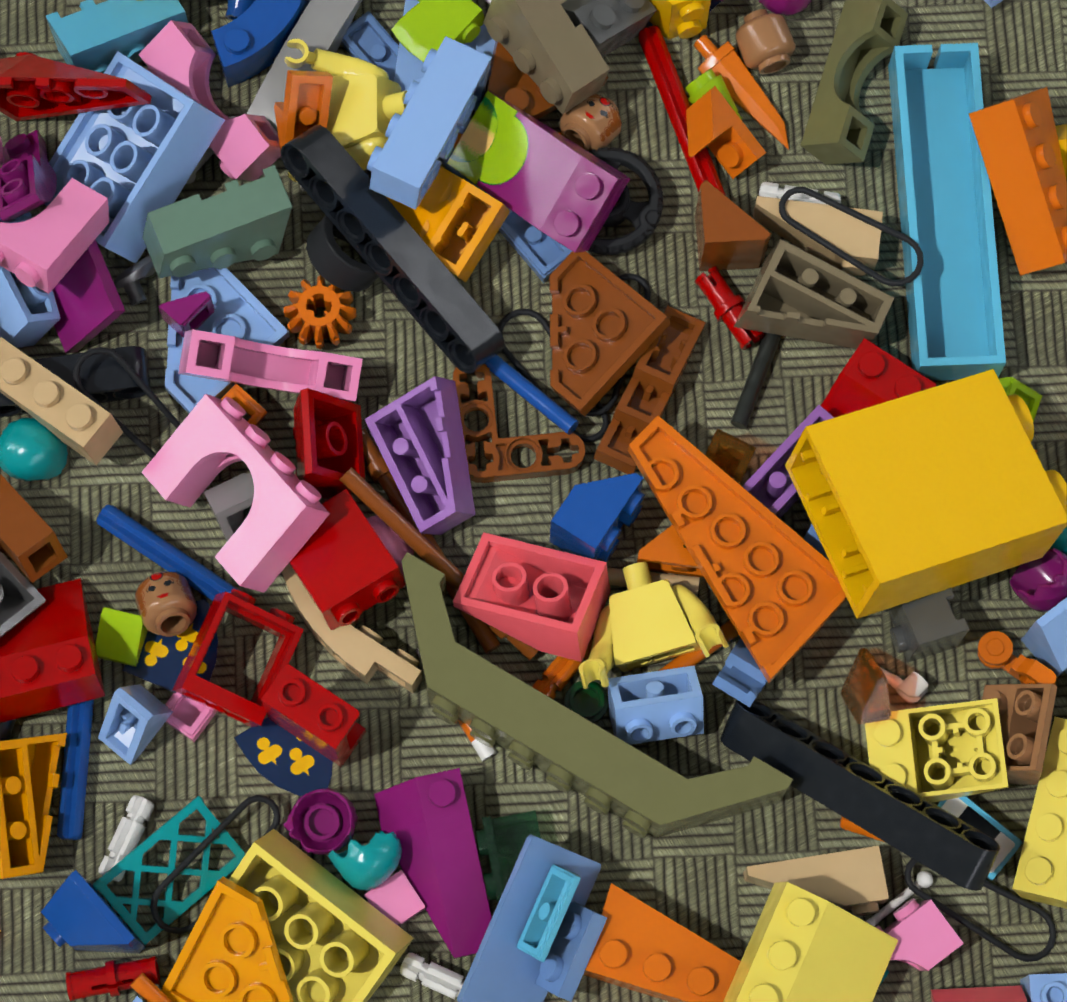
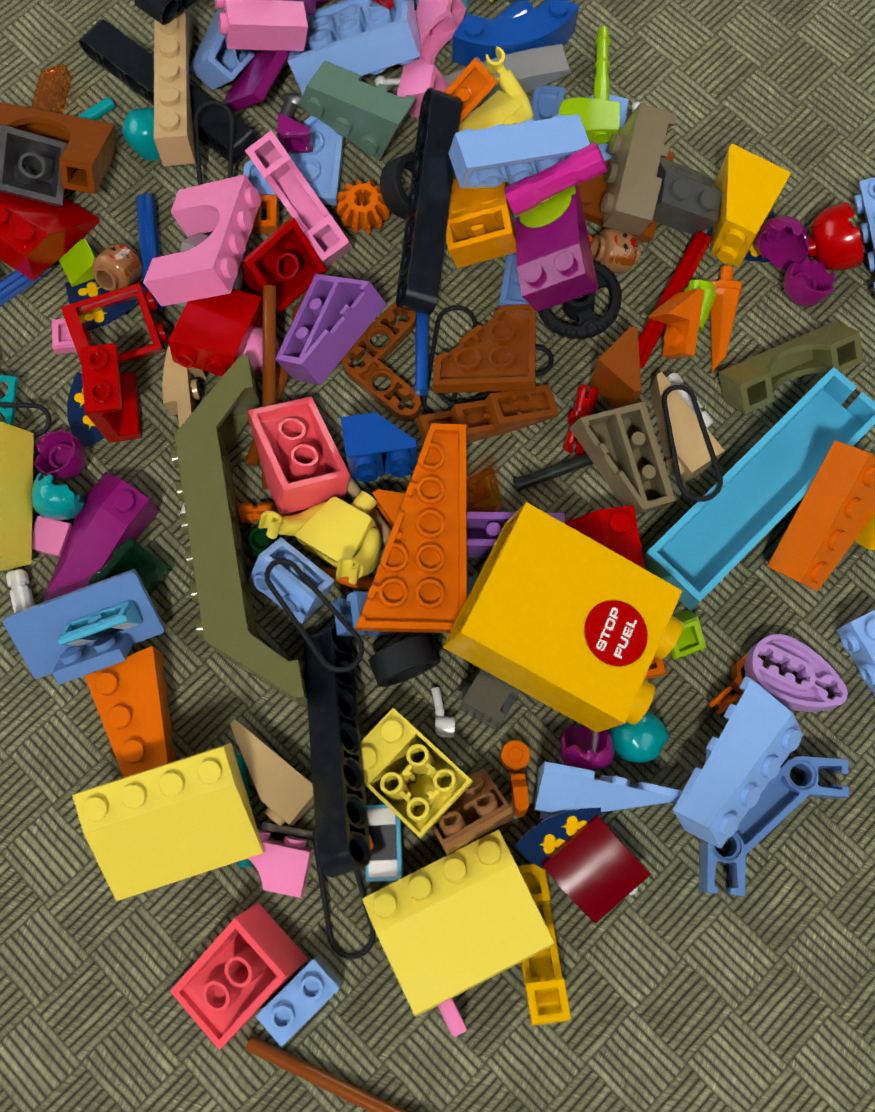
camera: 50 degrees right, 0 degrees up
(132, 721) = (35, 306): light blue slope -> none
(497, 90) = (576, 169): none -> dark pink axle
(719, 687) = (330, 667): none -> black piece
(765, 41) = (762, 301): medium nougat head -> none
(826, 668) = (404, 660): none -> black tyre
(866, 690) = (410, 698): clear orange slope -> none
(986, 457) = (615, 633): none -> red sticker

